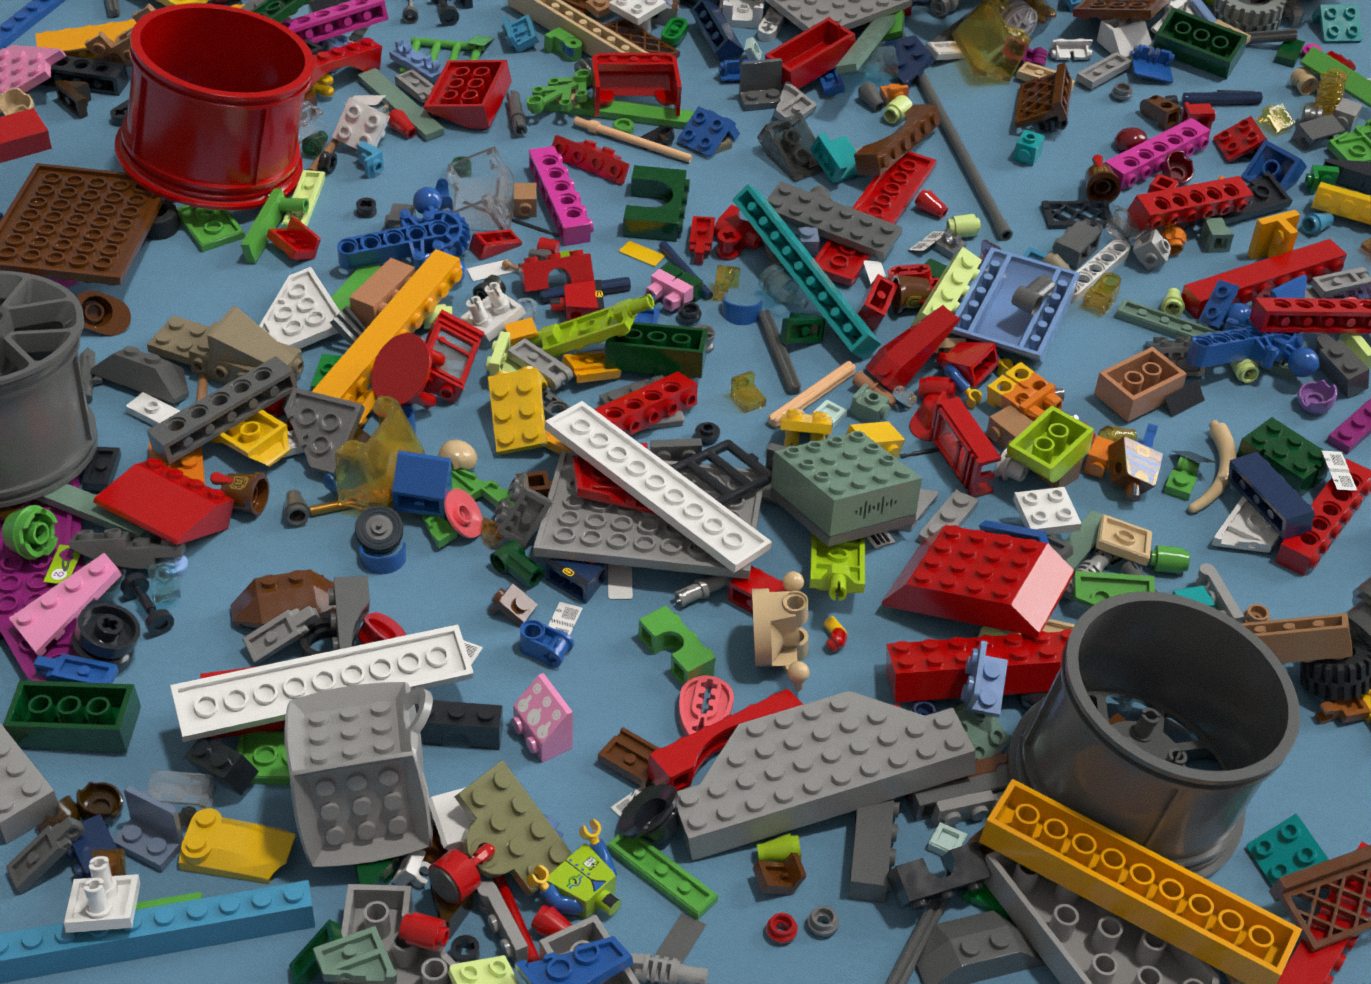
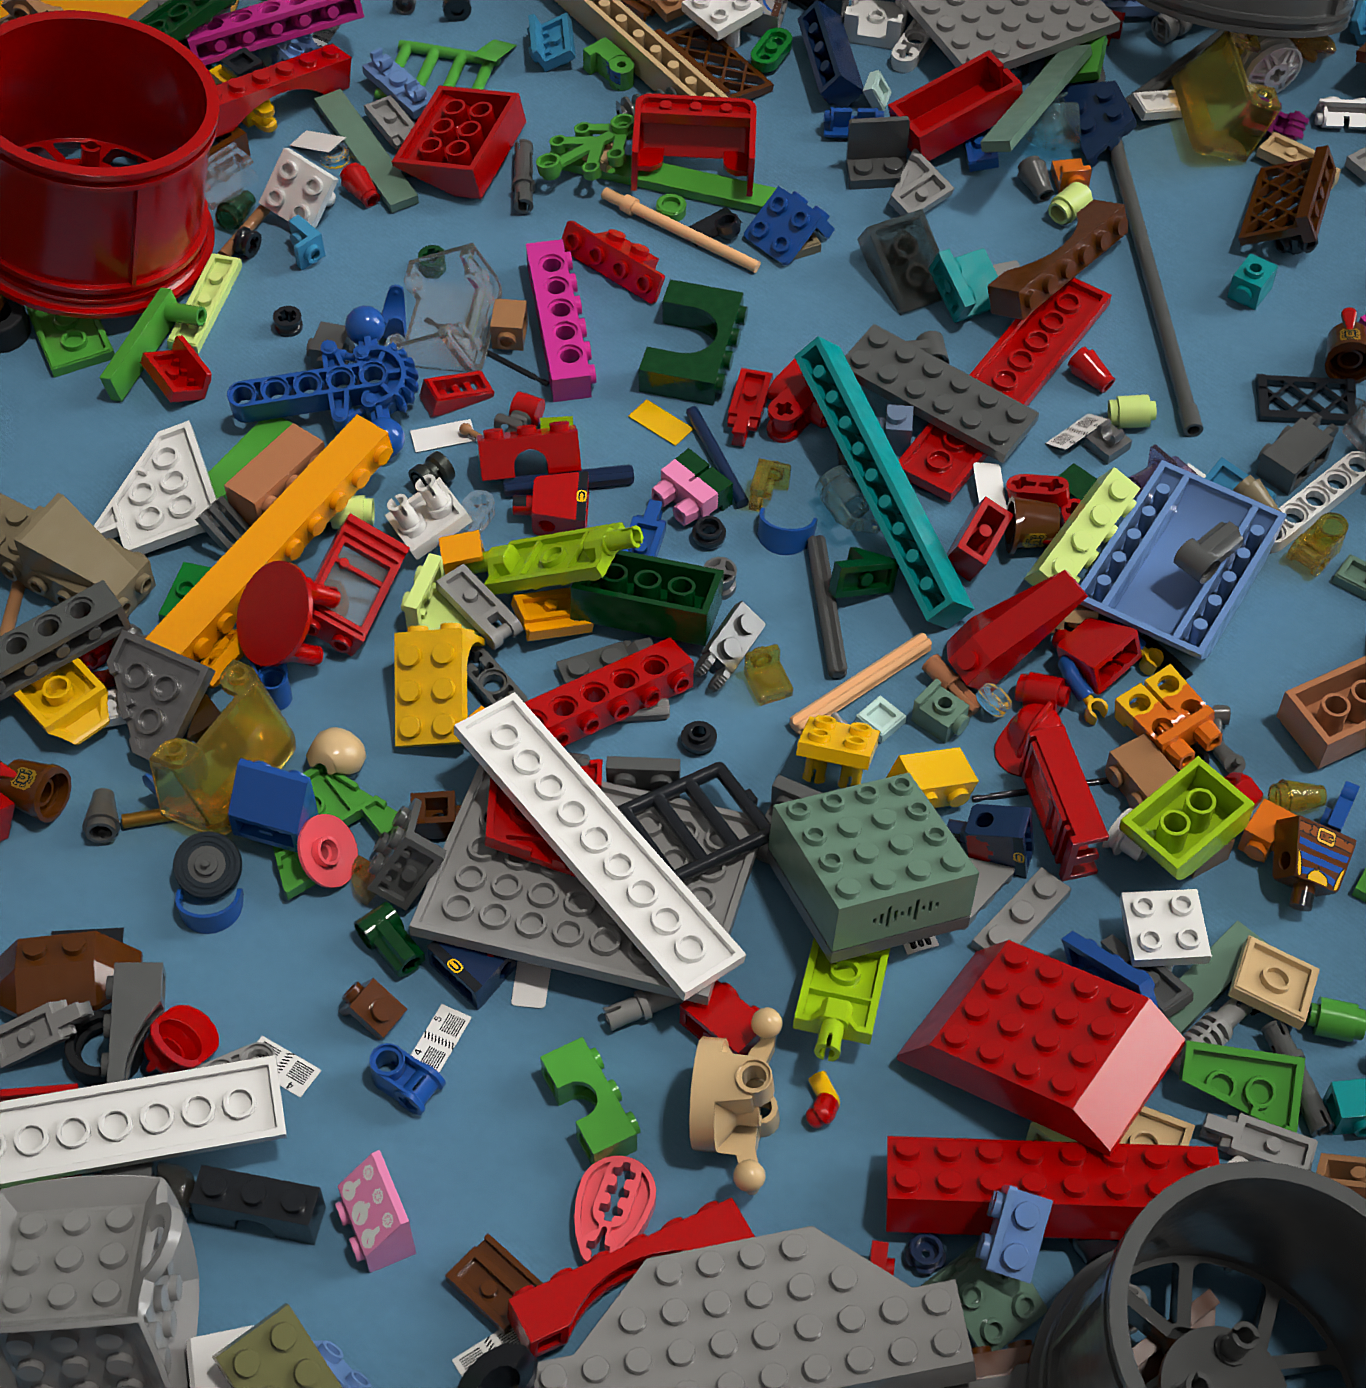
camera: 10 degrees right, 10 degrees up
(718, 376) = (729, 644): none -> hinge
(931, 466) = (997, 835): none -> dark blue torso

